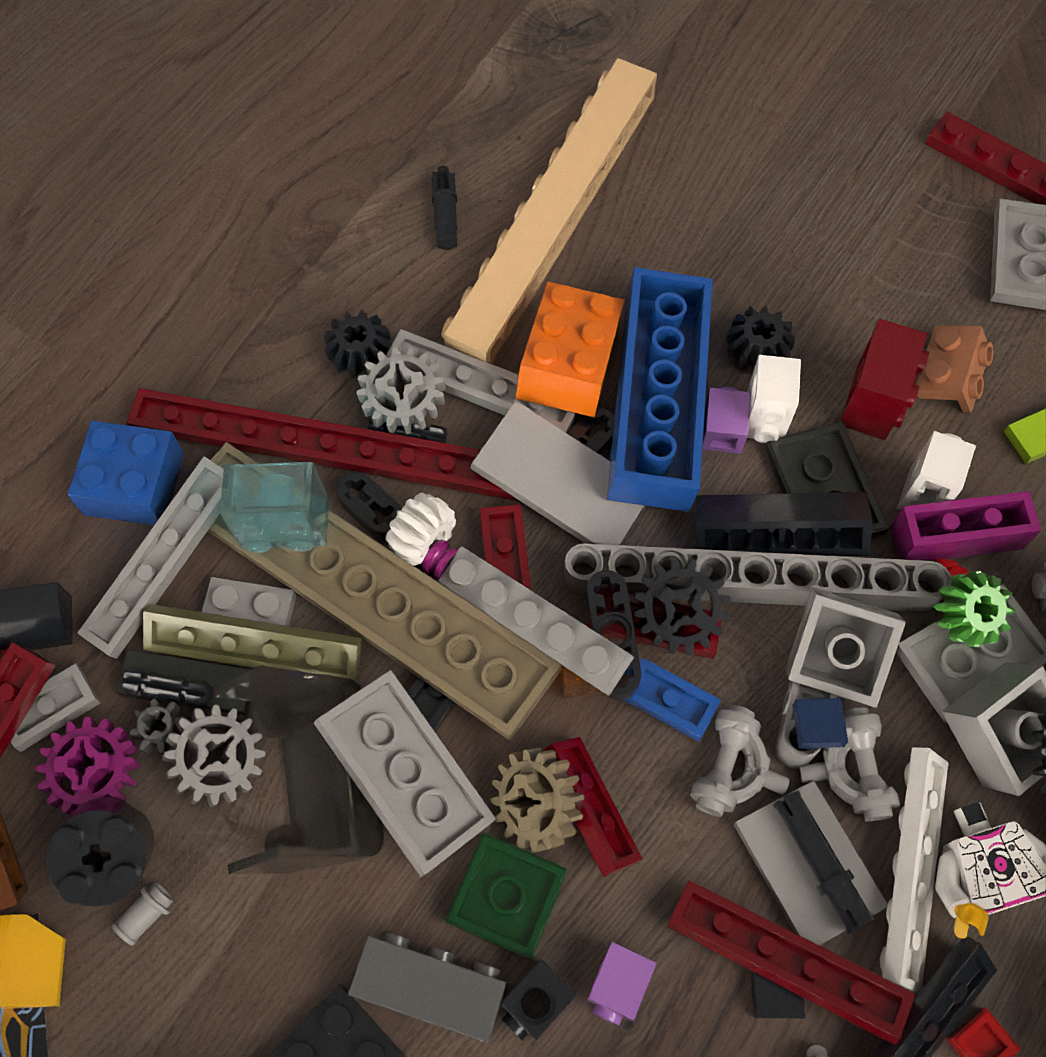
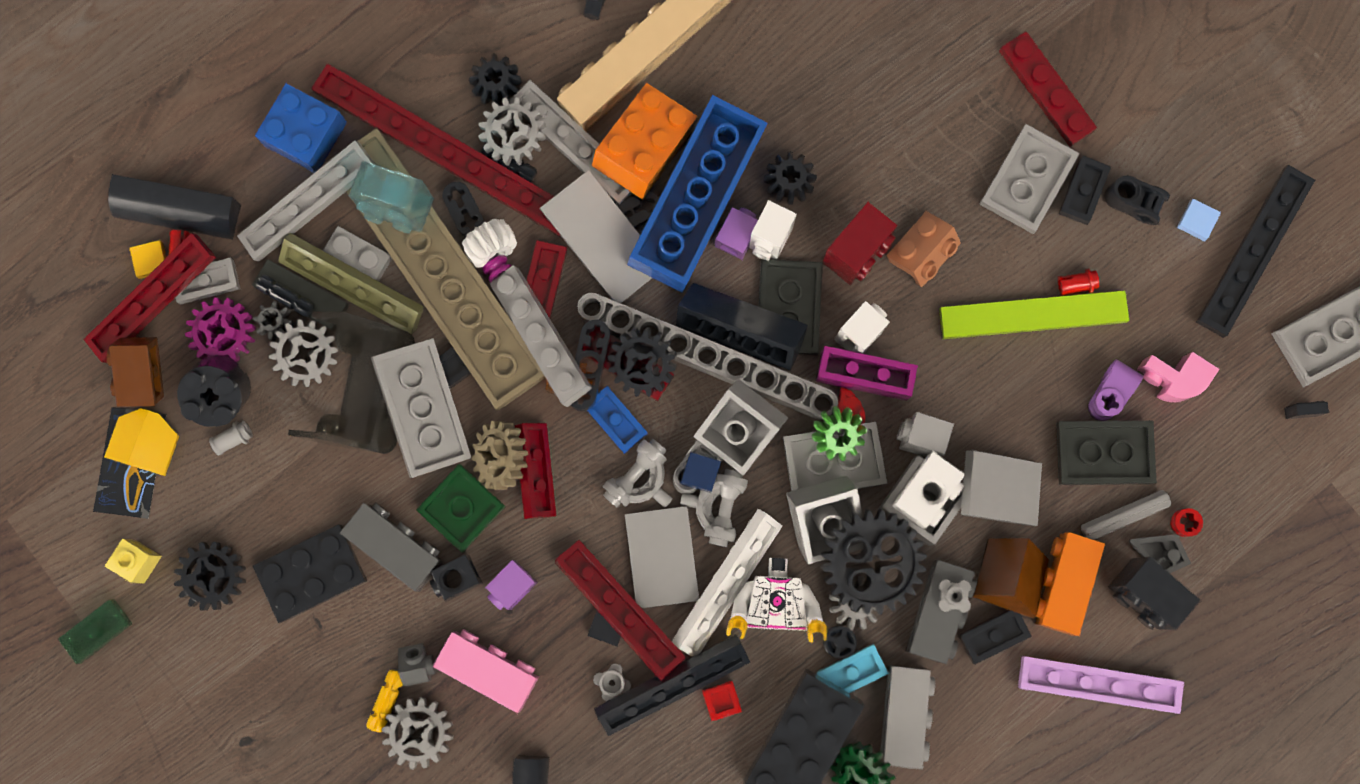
camera: 20 degrees right, 15 degrees up
(824, 863) = (667, 560): black pin -> none

